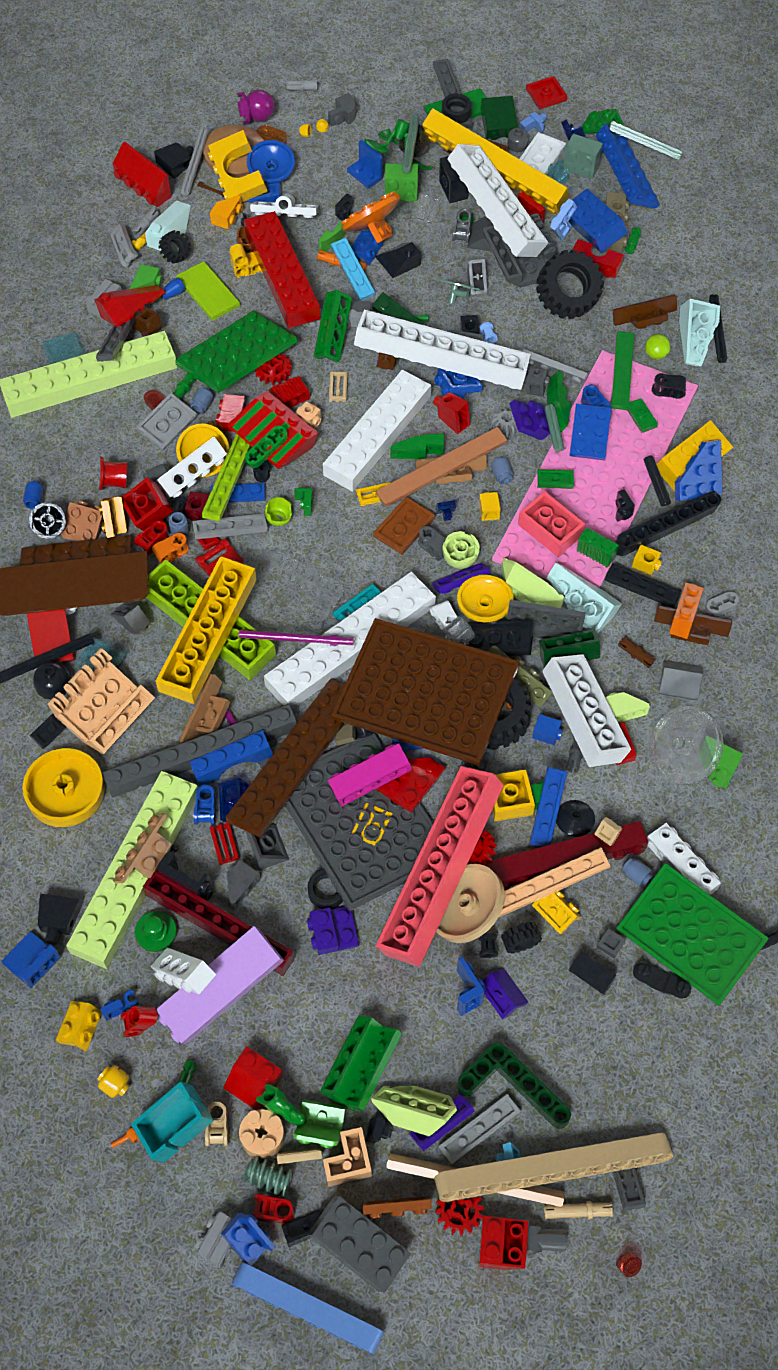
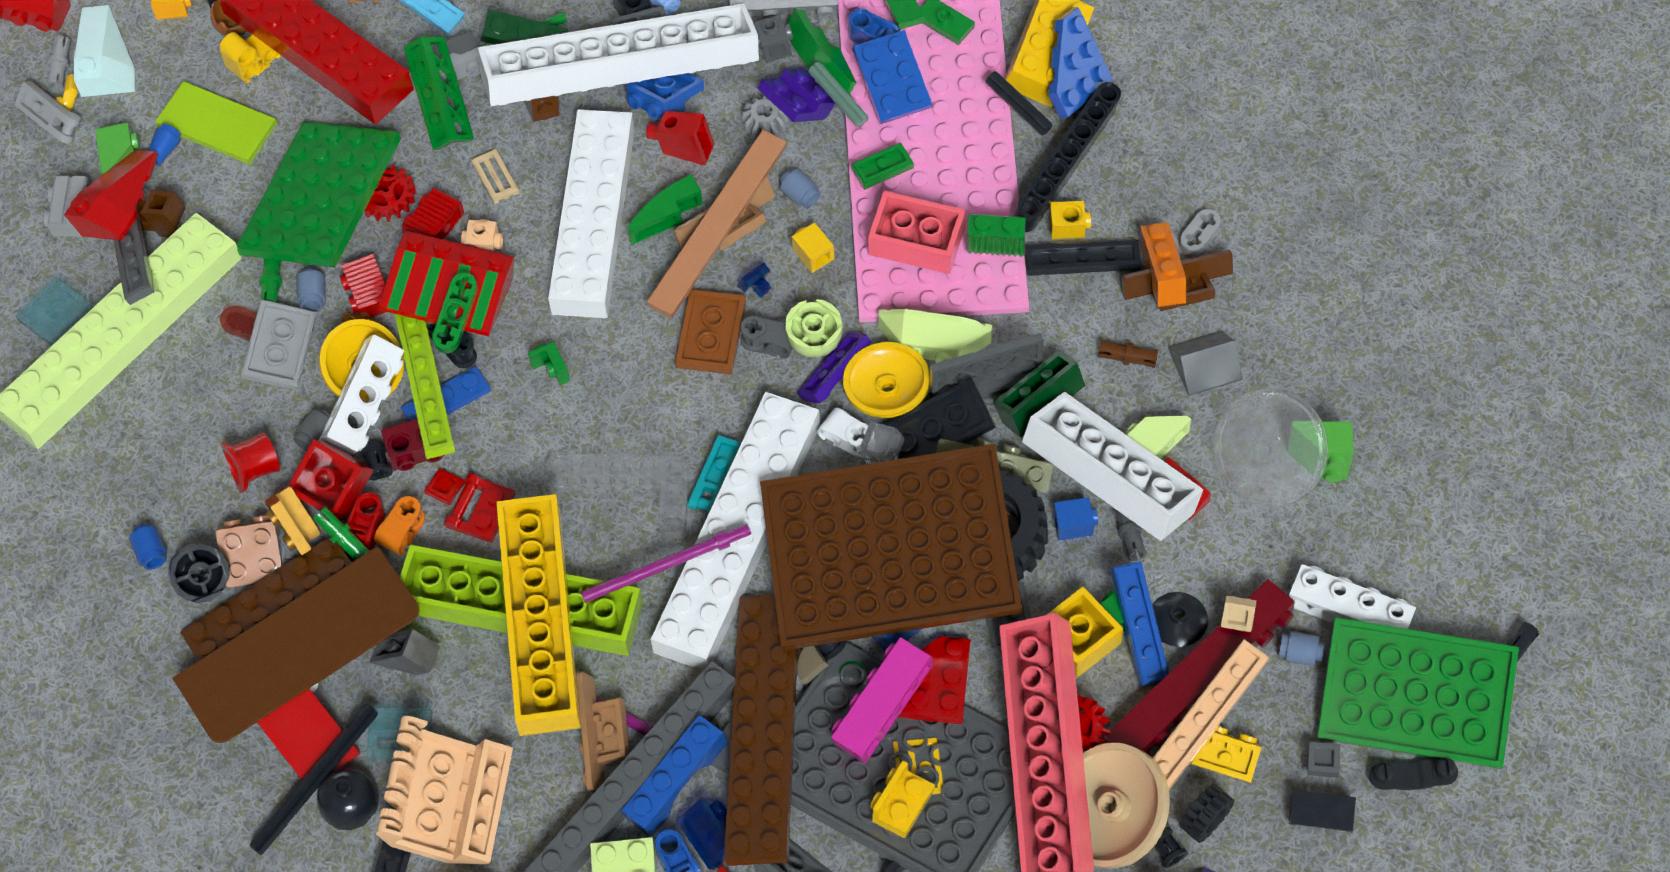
camera: 25 degrees left, 0 degrees up
(133, 535) = (340, 533): none -> green pin
(178, 523) = (392, 485): sand blue brick -> none
(180, 241) = (121, 88): black tyre -> none
(229, 526) = (469, 451): light grey plate -> none
(278, 506) = (520, 390): lime hair -> none
(347, 836) = (901, 800): none -> yellow bracket
(369, 498) = (645, 316): yellow tile -> none
(584, 597) = (1015, 312): light aqua wedge -> none
(624, 505) = (997, 157): black bracket -> none

